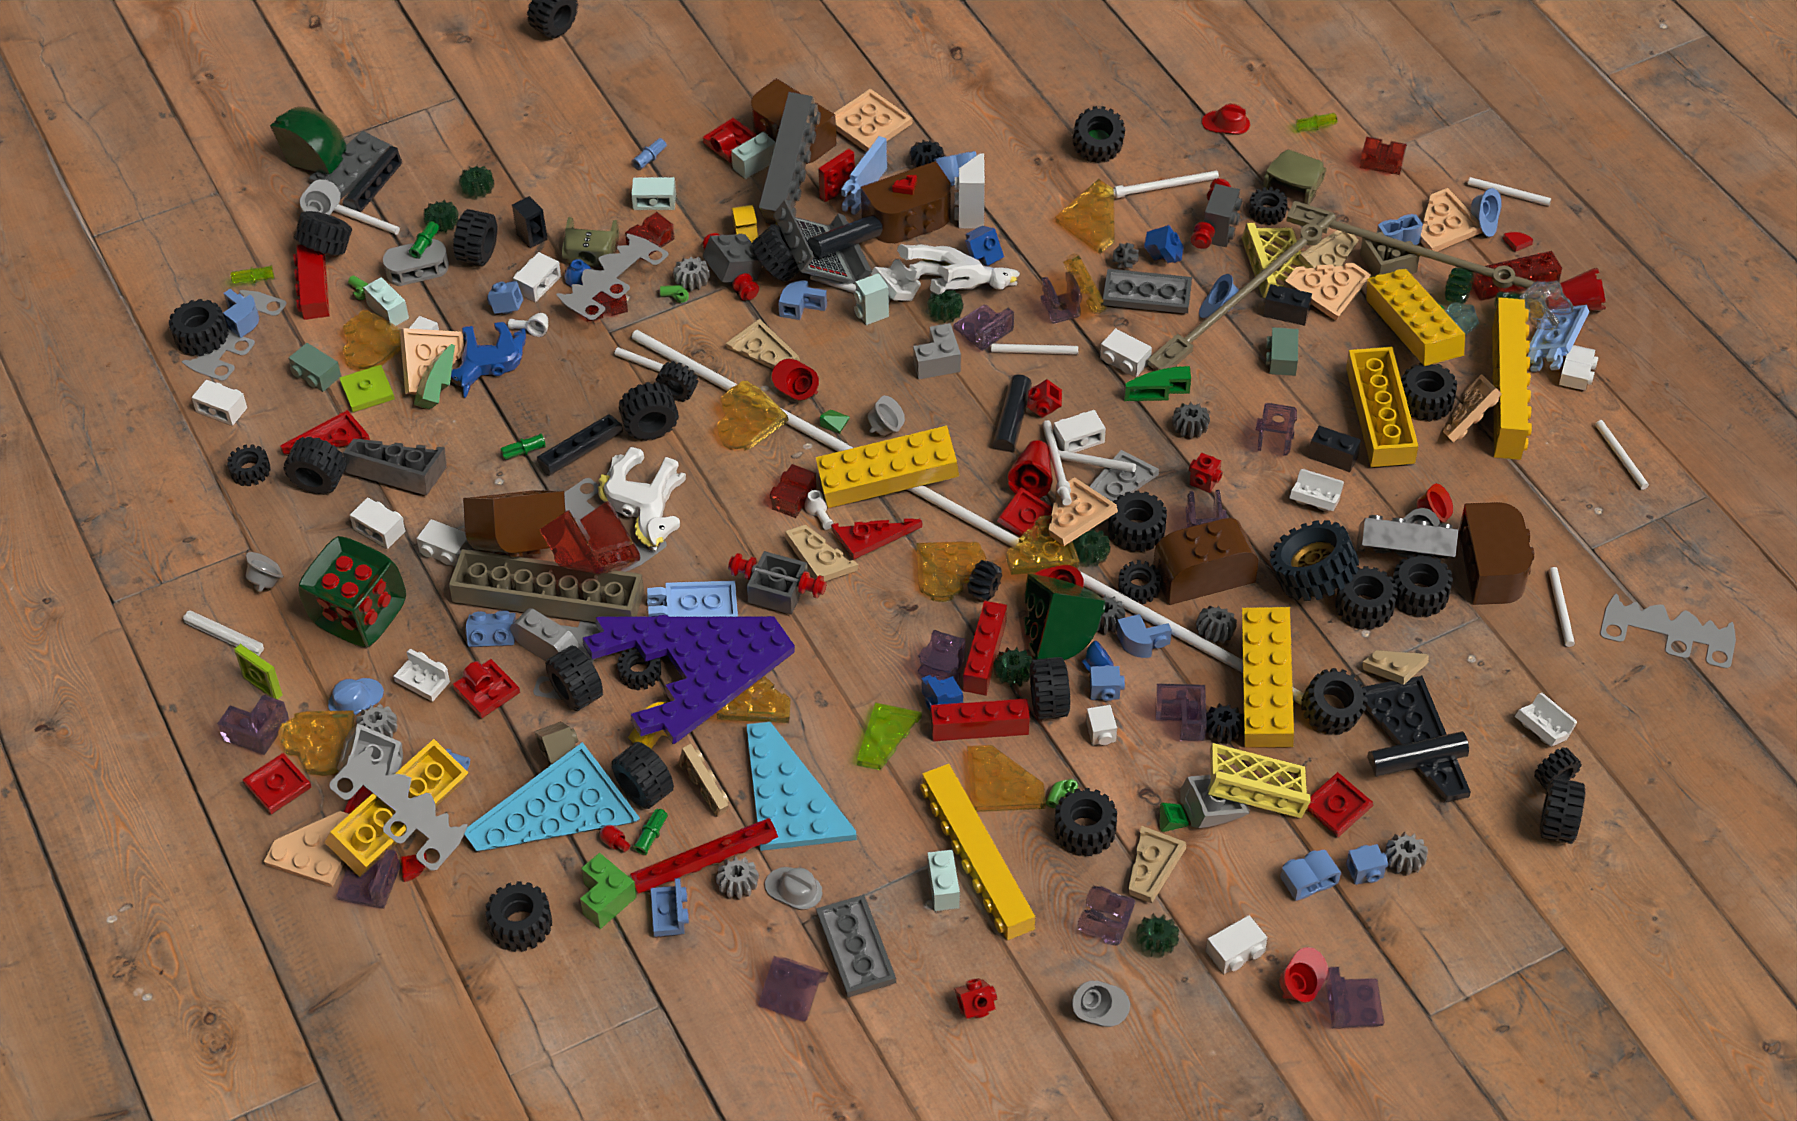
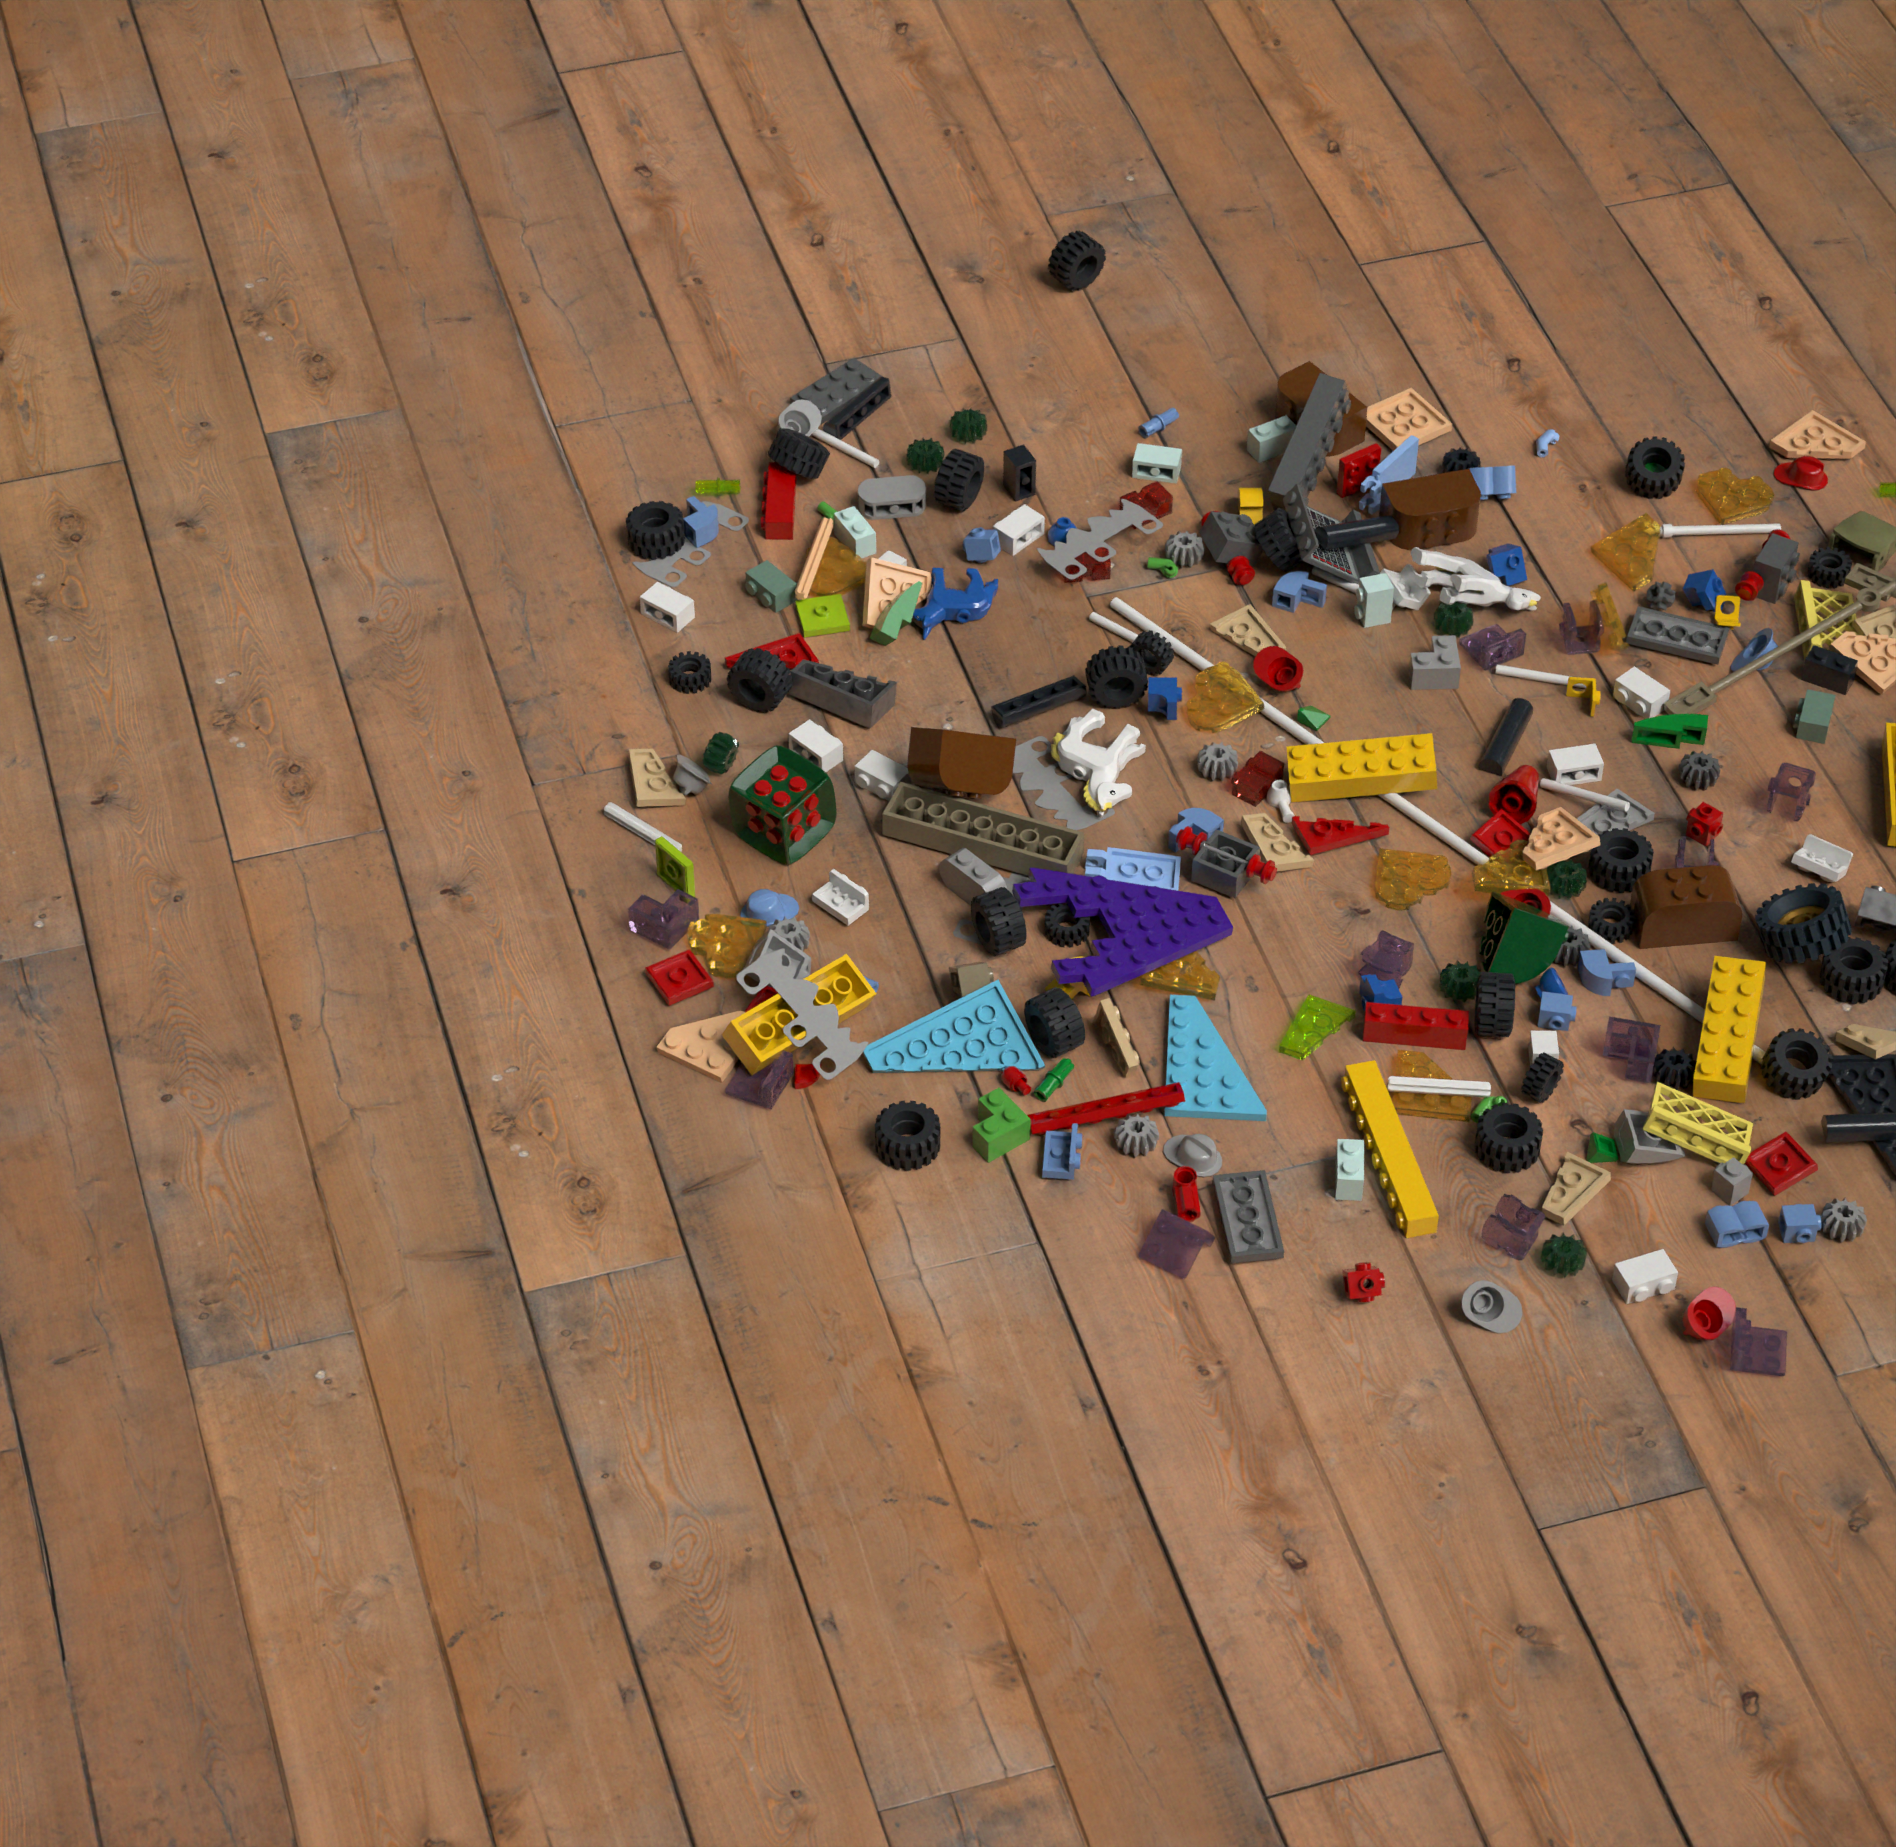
camera: 10 degrees right, 5 degrees down
(225, 582) = (651, 781): none -> tan wing
(287, 544) = (720, 753): none -> clear green gear
(309, 139) = (796, 358): dark green brick -> none
(350, 335) = (814, 558): none -> light nougat axle
(423, 240) = (904, 475): green axle -> none
(485, 687) = (904, 919): red plate -> none
(490, 629) = (917, 865): medium blue bracket -> none
(523, 446) = (978, 695): green axle -> none
(536, 325) = (1010, 578): white bar -> none
(589, 244) = (1079, 503): olive piece -> none
(605, 551) = (1037, 795): clear red windscreen -> none
(695, 423) = (1164, 695): none -> blue brick
(728, 137) = (1246, 416): red plate -> none
(744, 542) = (1200, 821): none -> medium blue brick
(754, 479) = (1217, 761): none -> light grey gear
(794, 933) = (1186, 1193): none -> red piece
(886, 416) = (1369, 719): light grey piece -> none
(905, 185) = (1431, 489): red tile -> none
(970, 194) = (1501, 507): white slope -> none
(984, 580) = (1445, 893): black gear -> none
(985, 648) = (1433, 957): red brick -> none
(995, 122) = (1542, 442): none -> light blue arm
(1012, 780) = (1439, 1086): none -> white axle
(1044, 398) = (1543, 725): red brick -> none
(1062, 486) = (1546, 813): white bar -> none
(1078, 358) = (1588, 692): none -> yellow bracket
(1106, 754) = (1542, 1077): none -> black tyre
(1169, 151) = (1733, 498): none -> clear yellow plate
(1190, 269) = (1728, 620): none -> yellow bracket
(1216, 624) = (1685, 972): dark grey gear -> none
(1234, 86) = (1817, 438): none -> light nougat plate
(1297, 831) = (1731, 1181): none -> light grey brick
(1334, 448) = (1850, 820): black brick -> none

